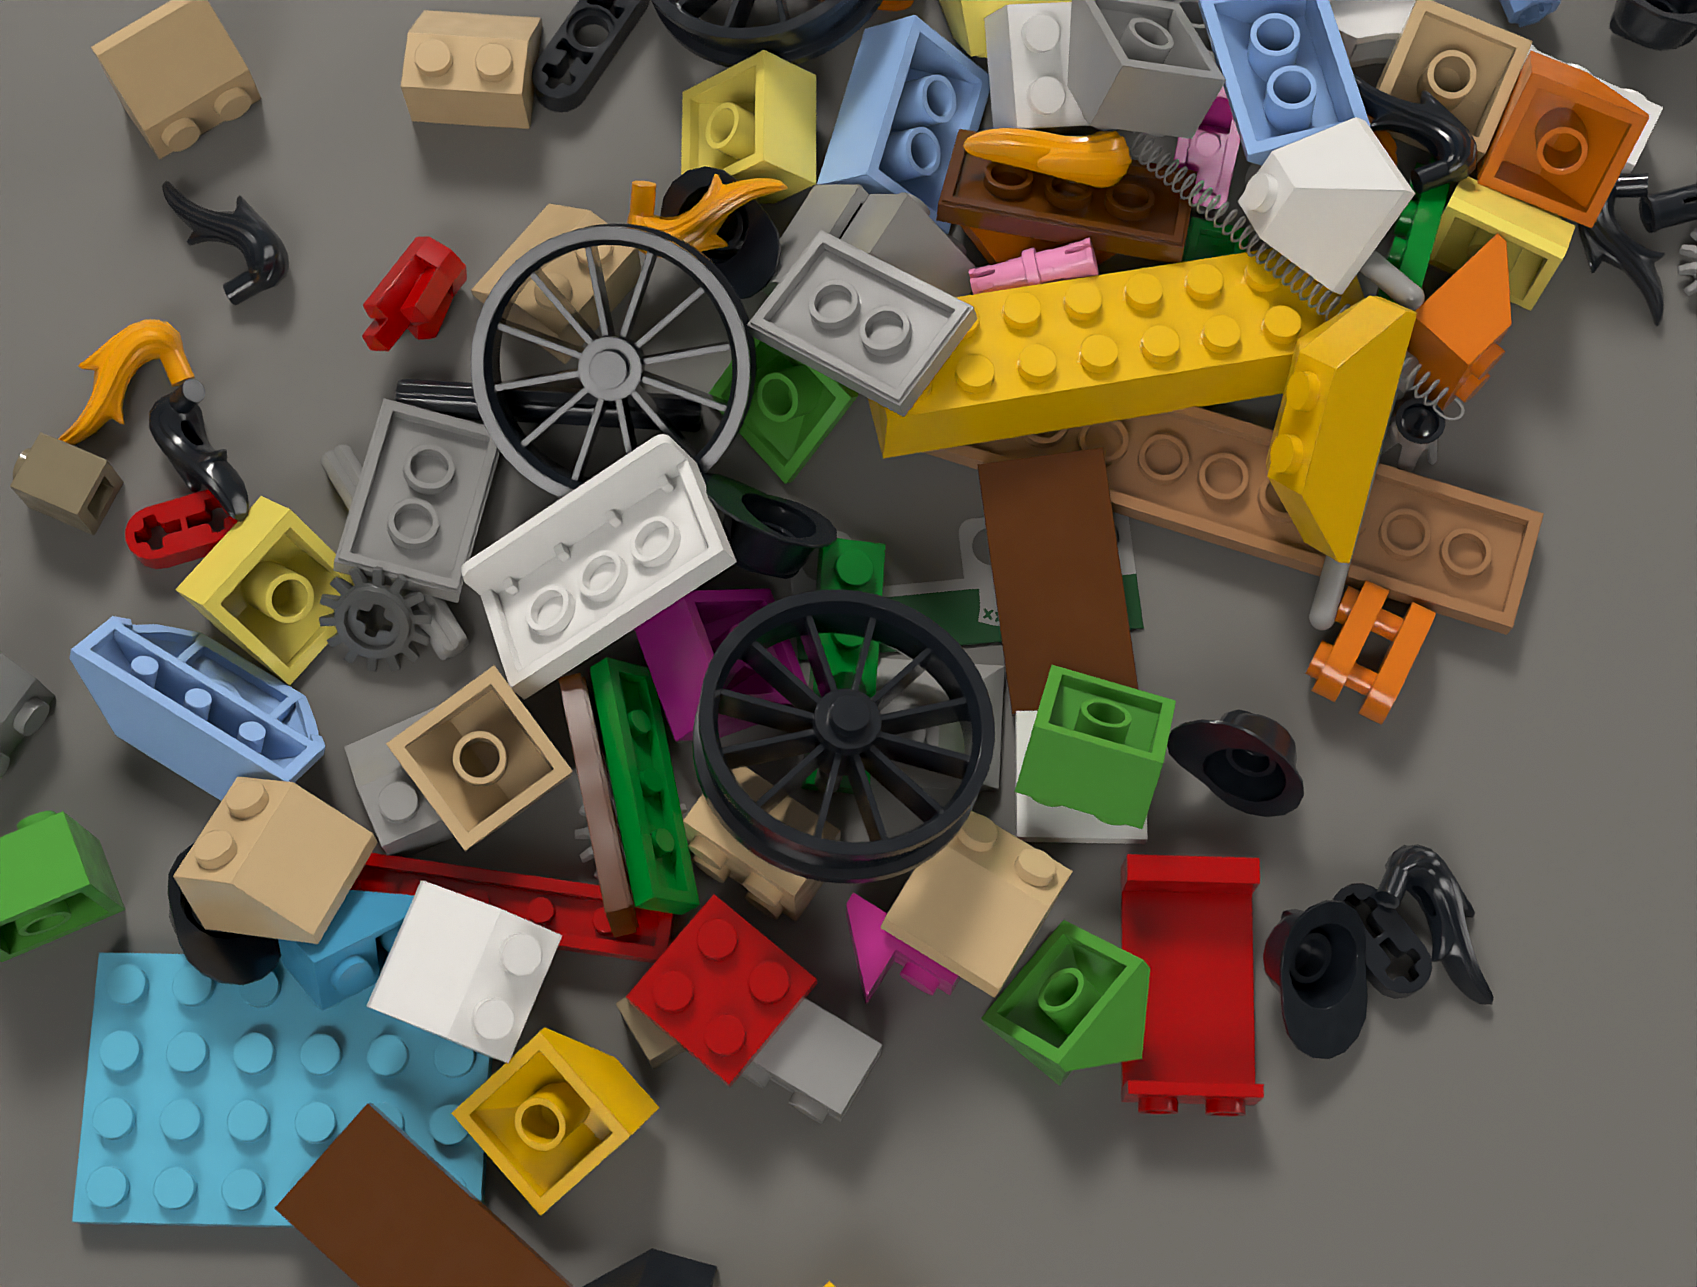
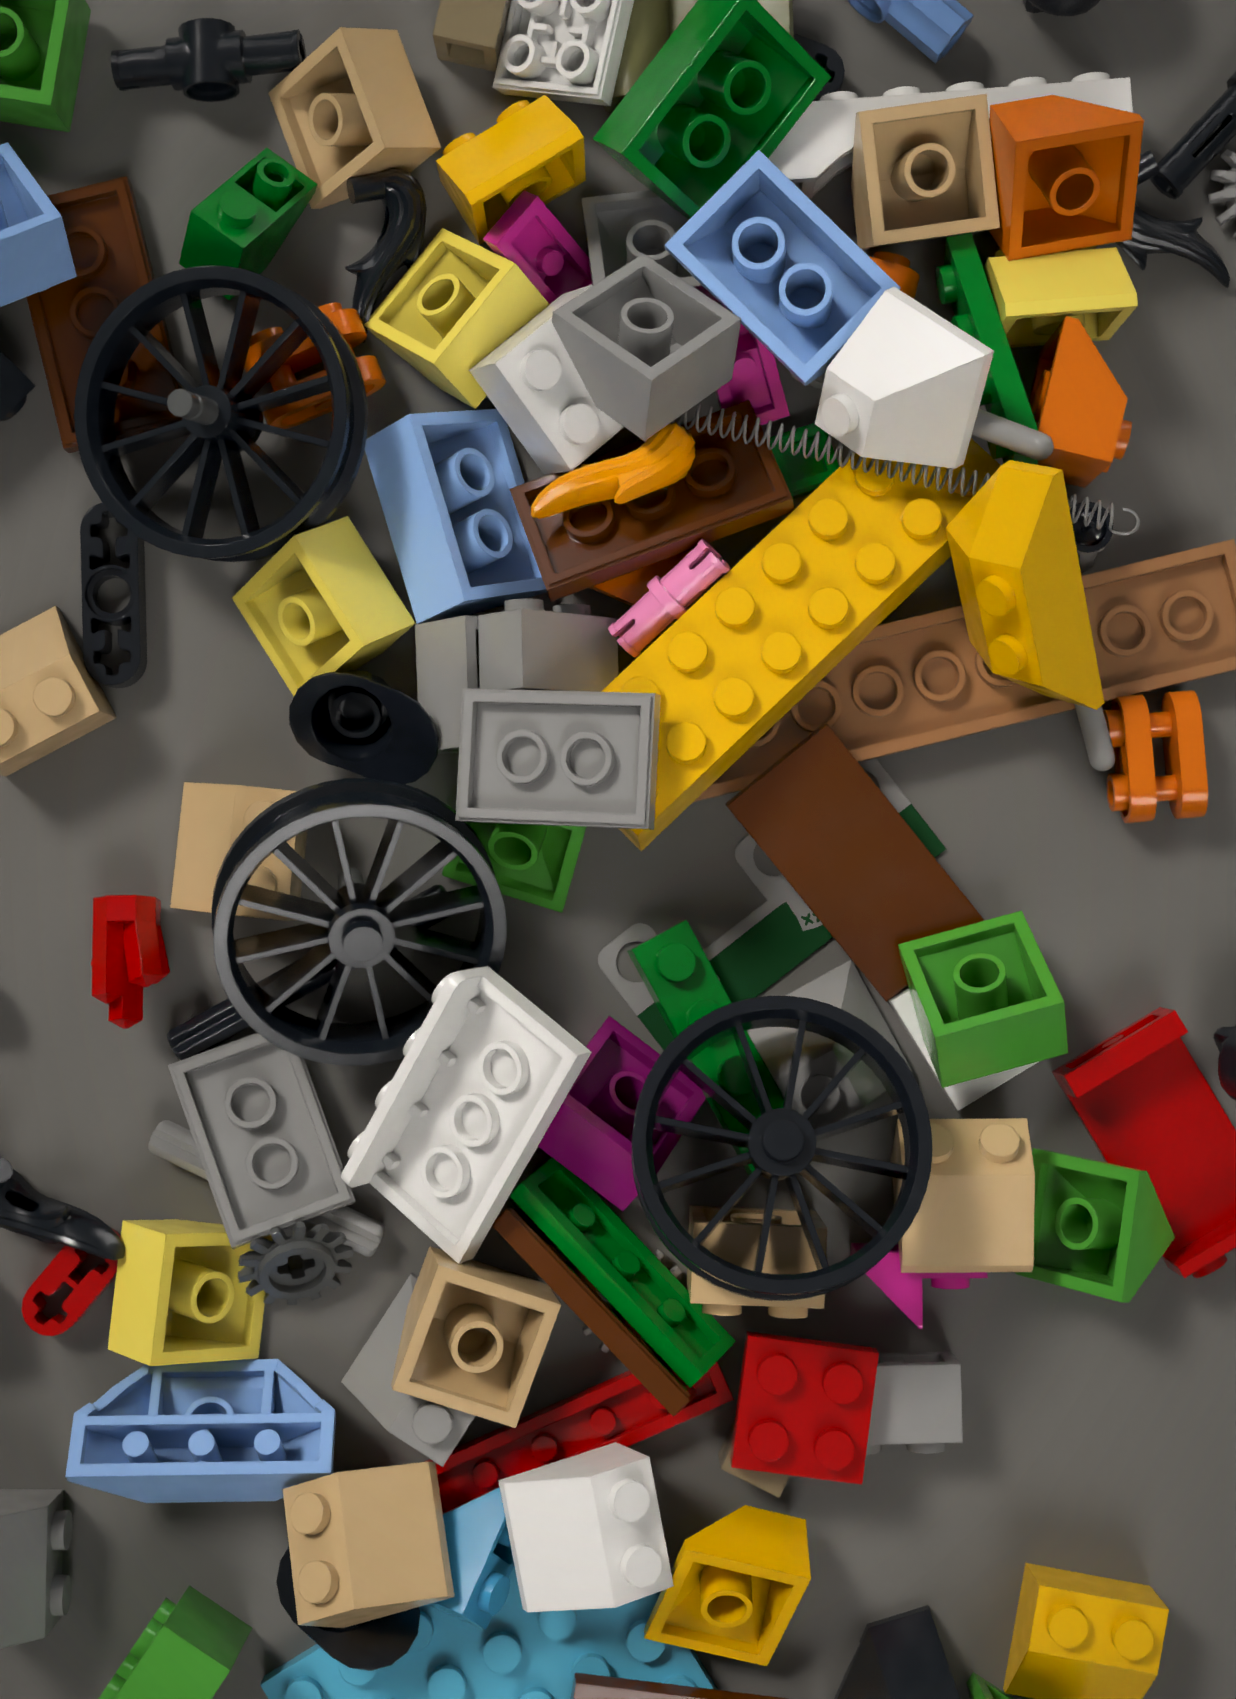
camera: 30 degrees left, 15 degrees up
(704, 220) = (339, 741): light orange piece -> none
(766, 530) = (578, 973): black piece -> none
(1242, 761) = (1111, 924): black piece -> none
(1429, 125) = (940, 236): black piece -> none

